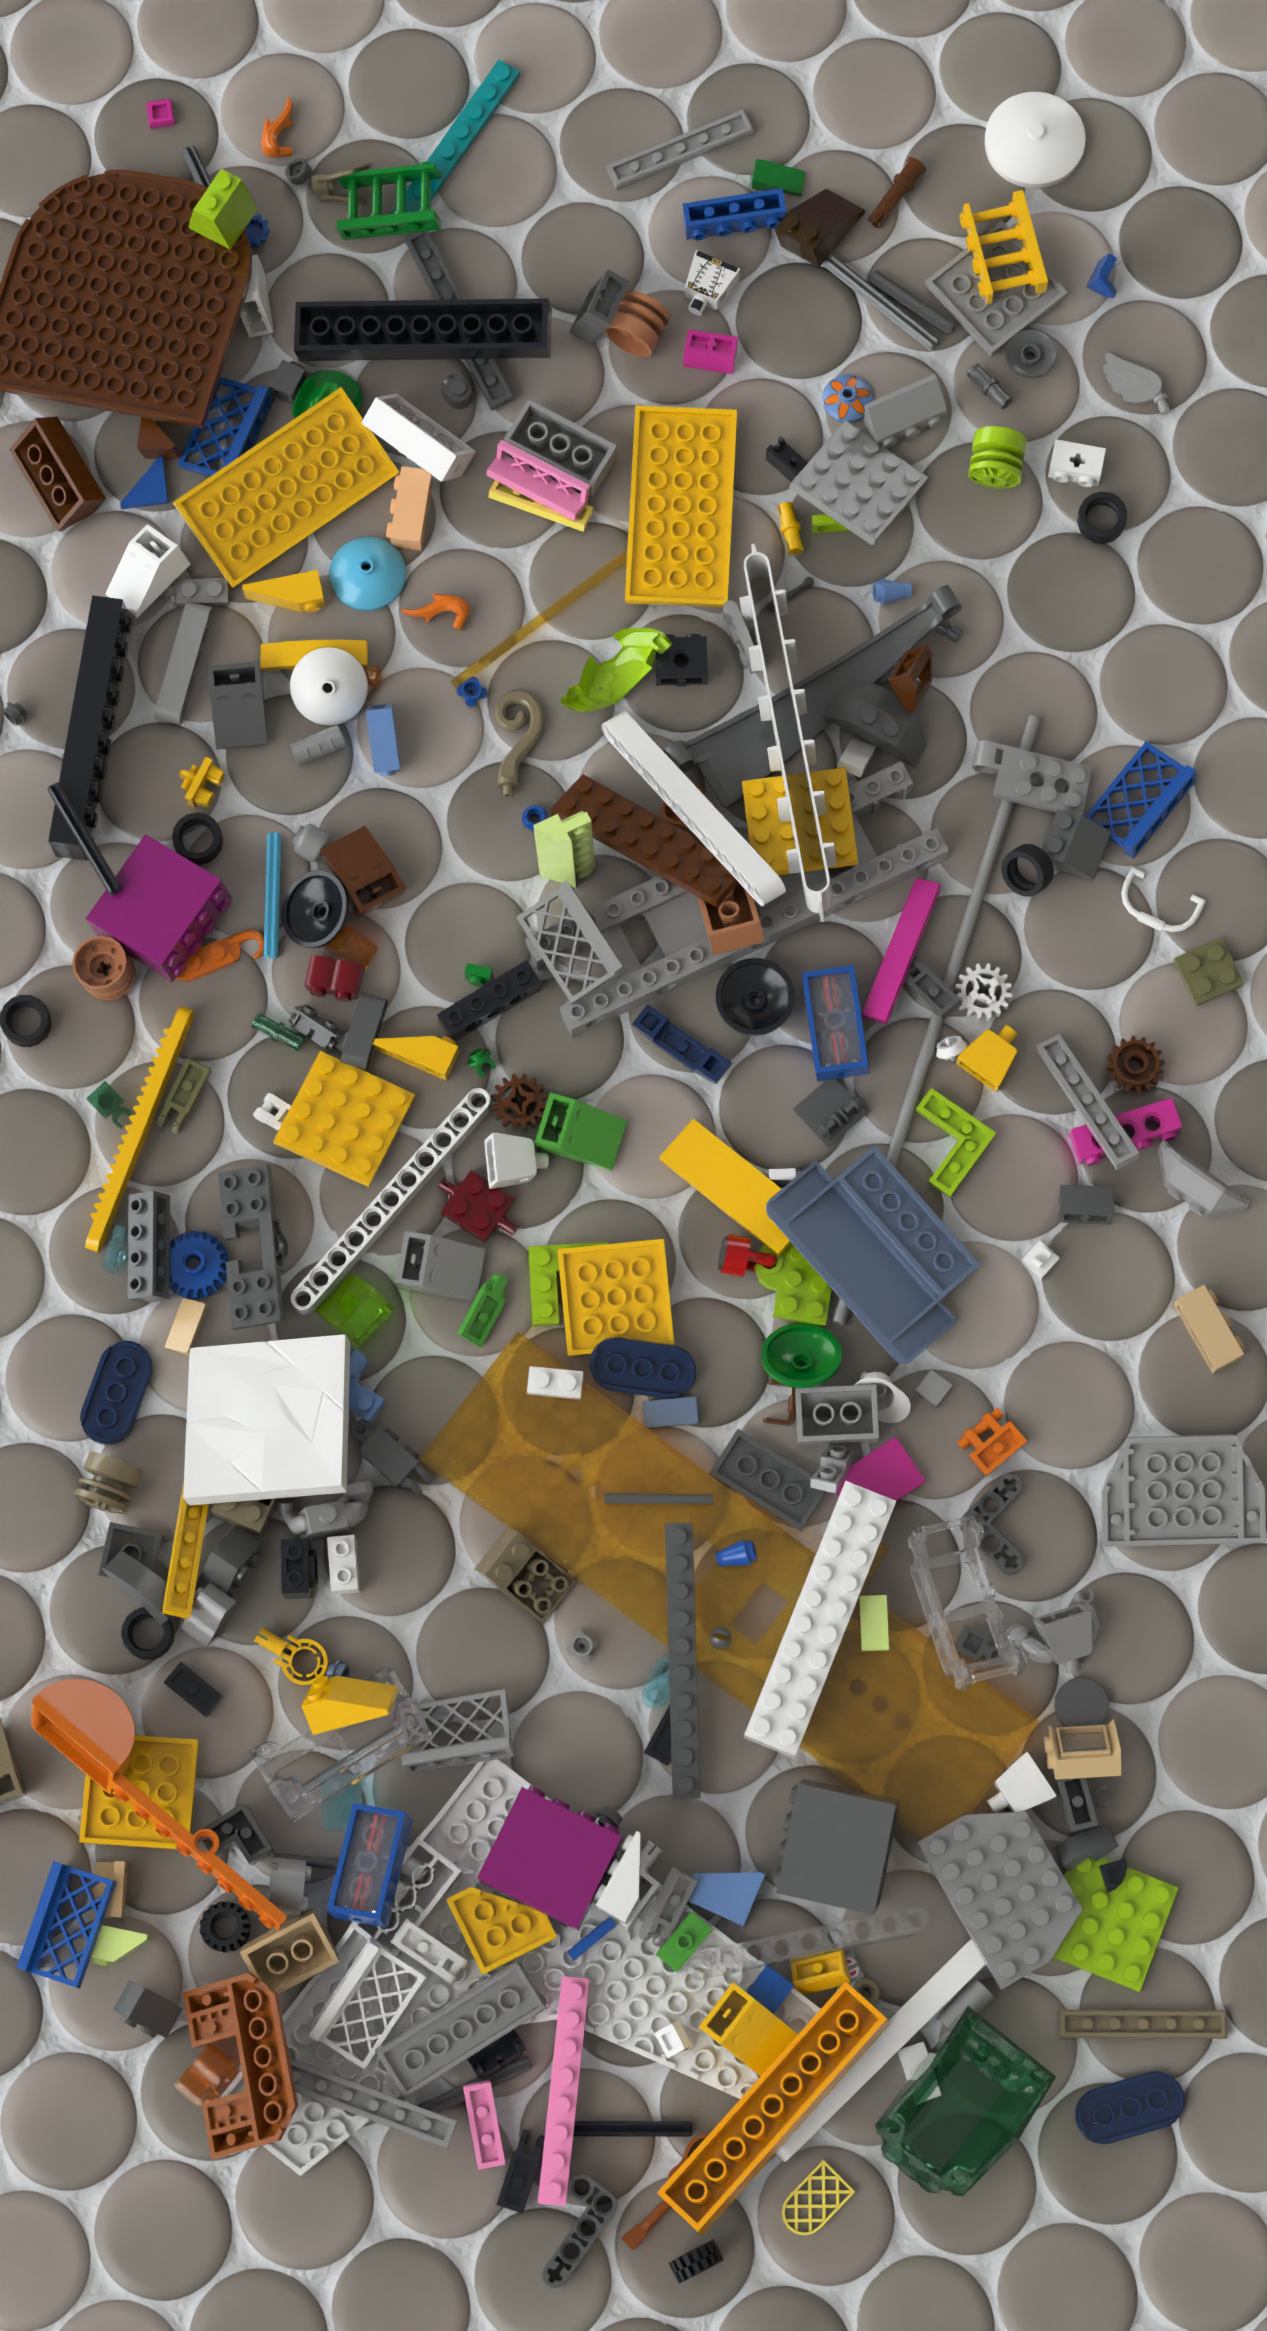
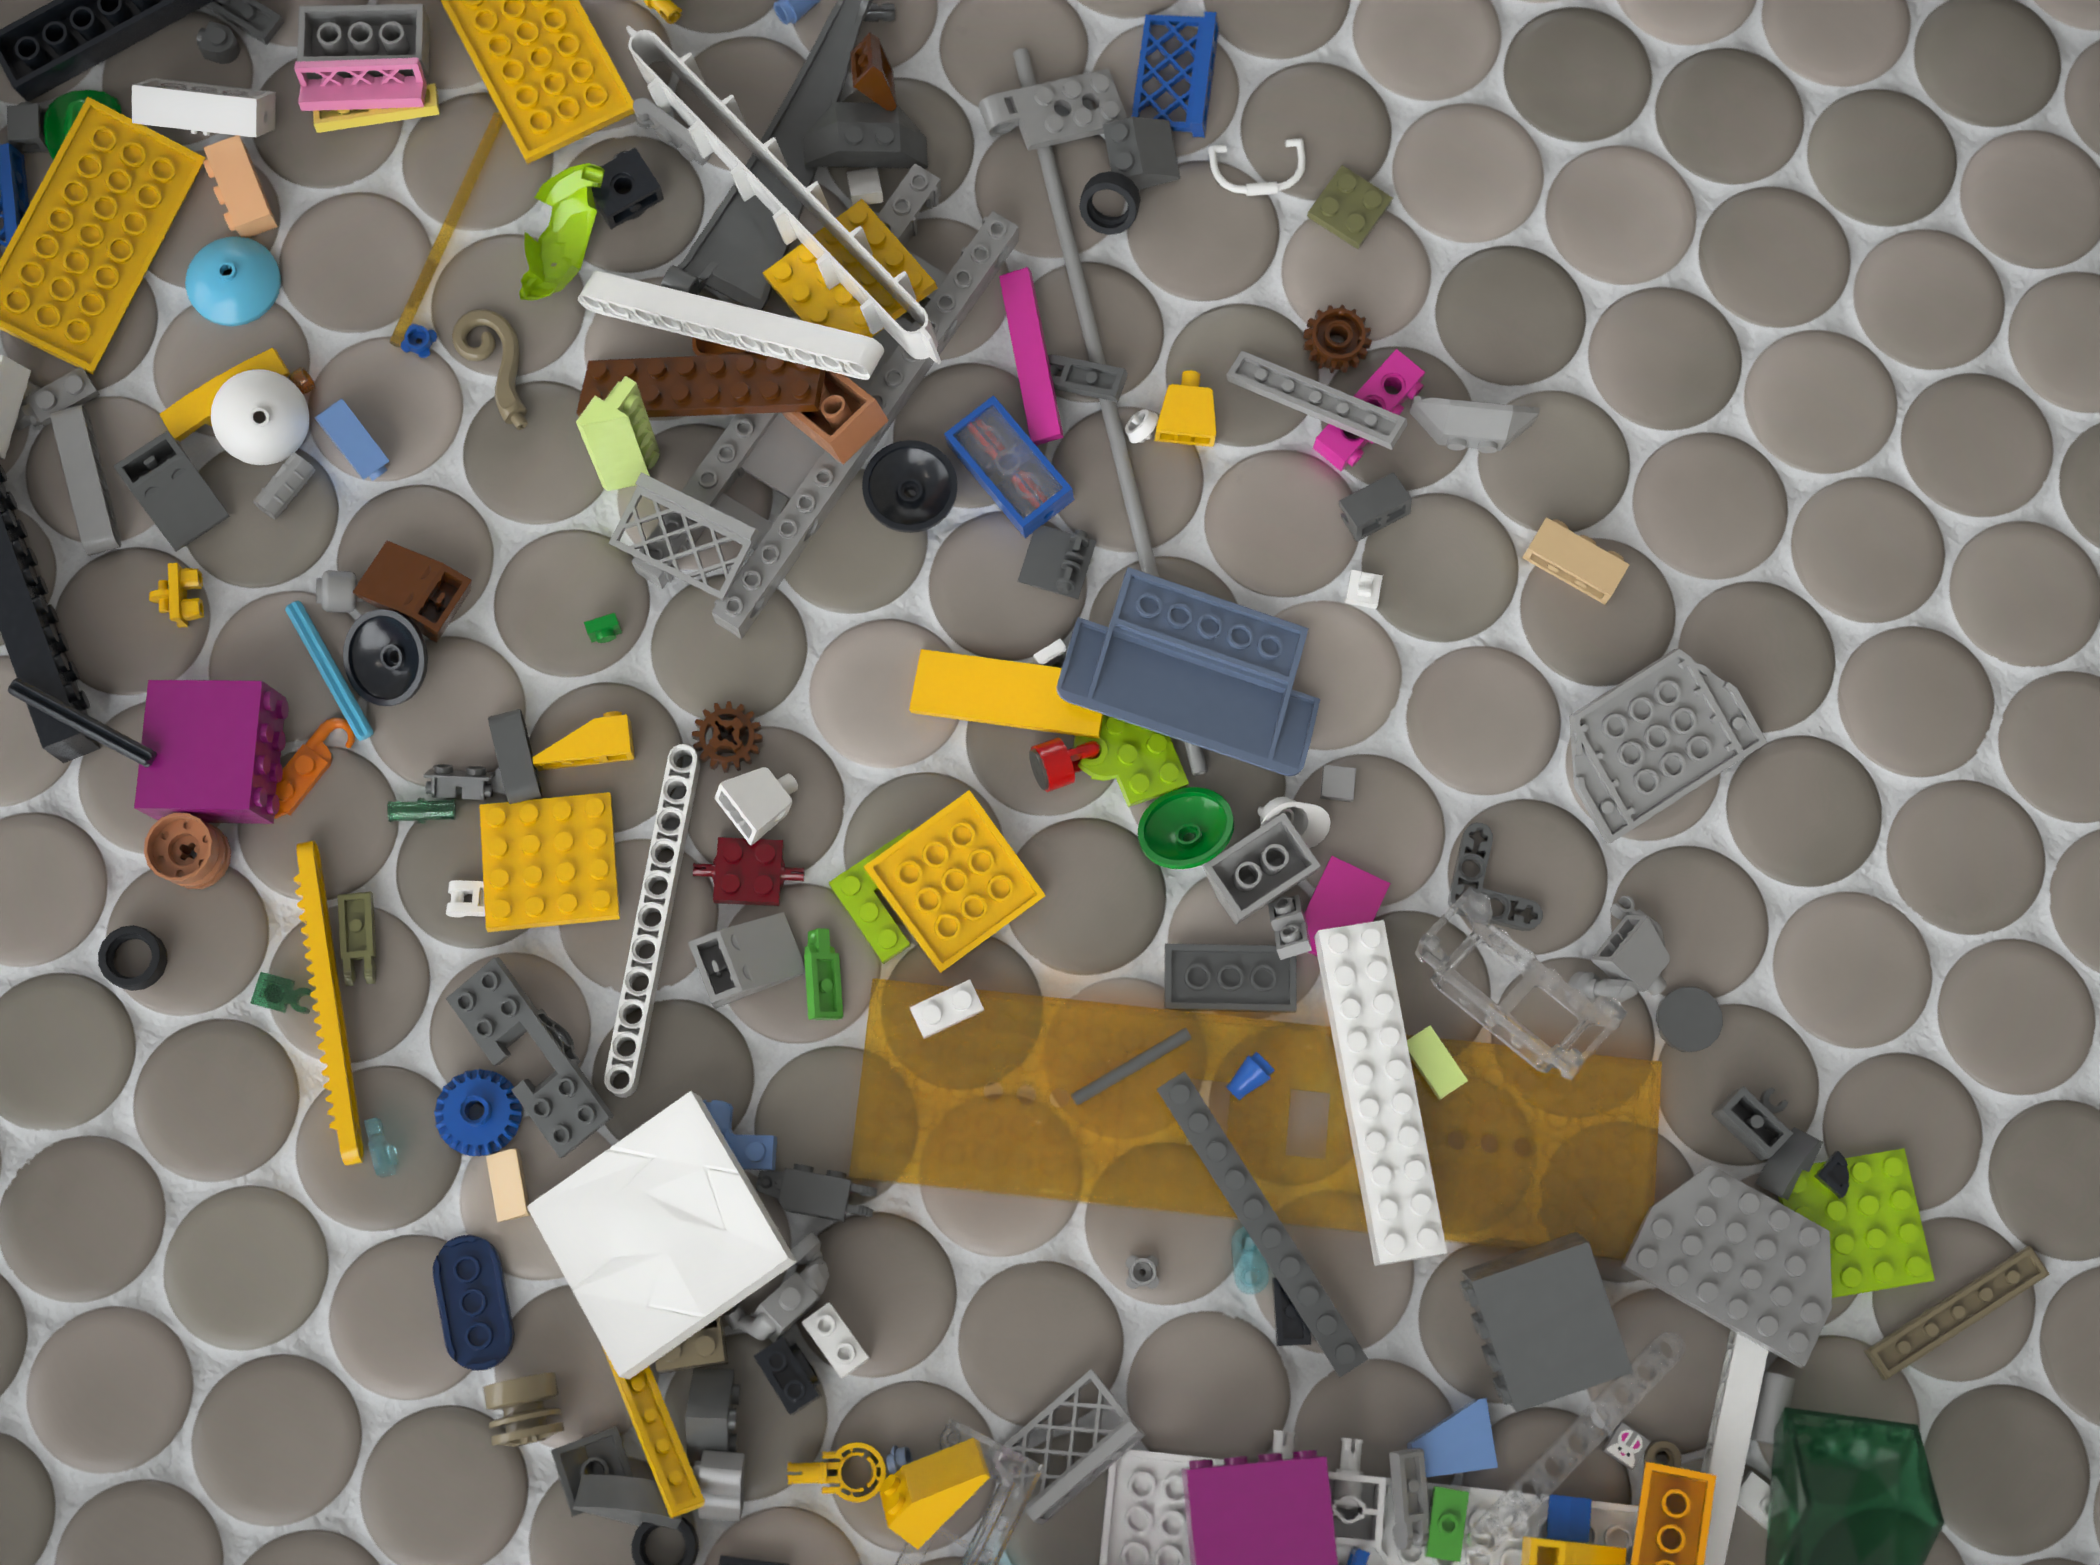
camera: 40 degrees left, 0 degrees up
(148, 1247) = (415, 1123): dark grey brick -> none
(198, 819) = (195, 638): black tyre -> none
(293, 592) = (161, 342): yellow slope -> none
(334, 977) = (448, 719): dark red brick -> none
(352, 947) = (449, 676): clear orange slope -> none
(354, 1309) = (682, 1058): clear neon green slope -> none
(442, 604) = (334, 266): orange piece -> none
(478, 1058) = (656, 714): green plate -> none
(489, 1001) = (632, 649): black brick -> none
(525, 1574) = (1036, 1232): dark tan slope -> none
(533, 811) = (561, 426): blue plate -> none
(579, 1132) = (811, 731): bright green slope -> none
(609, 1816) = (1290, 1440): dark grey plate -> none
(623, 1889) = (1357, 1512): white slope -> none
(642, 1367) = (1026, 939): dark blue tile -> none
(670, 1412) = (1084, 968): sand blue tile -> none
(680, 1045) = (862, 582): dark blue slope -> none
(718, 1643) = (1289, 1182): dark grey hinge -> none
(791, 1407) = (1205, 887): reddish brown piece -> none
(808, 582) = (705, 42): dark grey hinge -> none
(820, 1972) = (1605, 1466): yellow slope -> none
(971, 1135) = (1211, 500): lime plate -> none
(974, 1644) = (1546, 1021): dark grey plate -> none
(992, 985) = (1142, 339): white gear -> none
(997, 1448) = (1441, 806): orange plate -> none
(1021, 1787) = (1685, 1142): white torso -> none
(1083, 1751) = (1729, 1065): tan window -> none
(1129, 2107) = (1999, 1408): dark blue tile -> none

